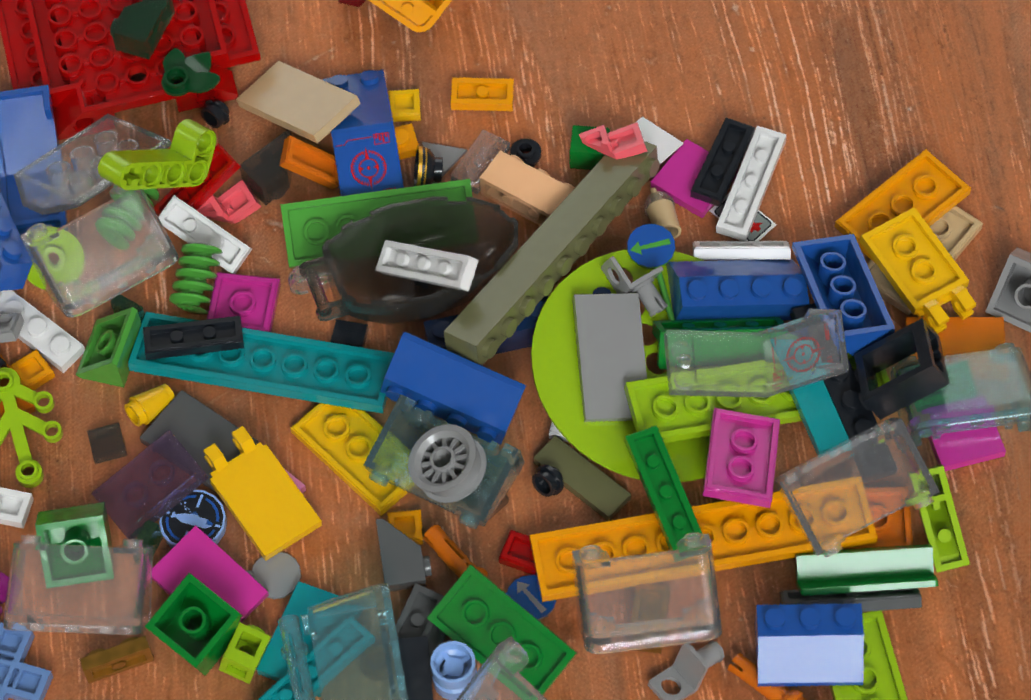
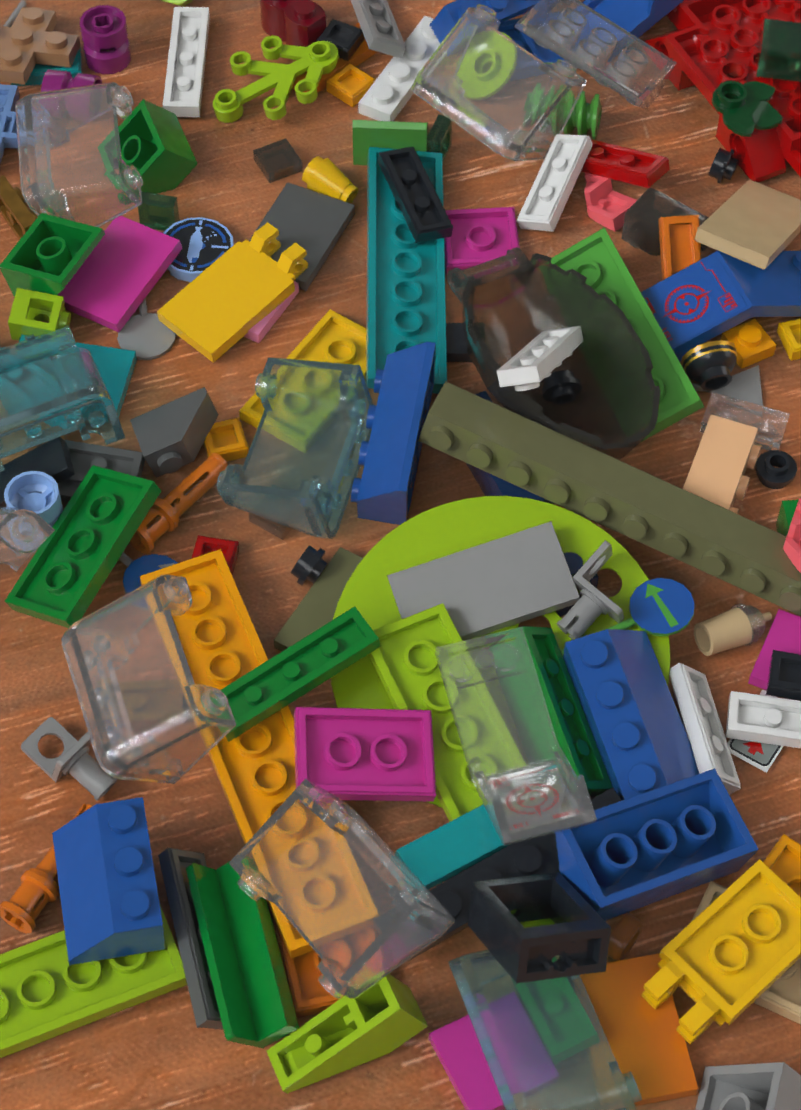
camera: 75 degrees right, 5 degrees down
(150, 485) = (229, 199): tile -> none
(180, 166) = (570, 51): lime beam -> none
(194, 276) = (491, 181): bright green piece -> none
(457, 478) = (289, 440): light grey wheel -> none

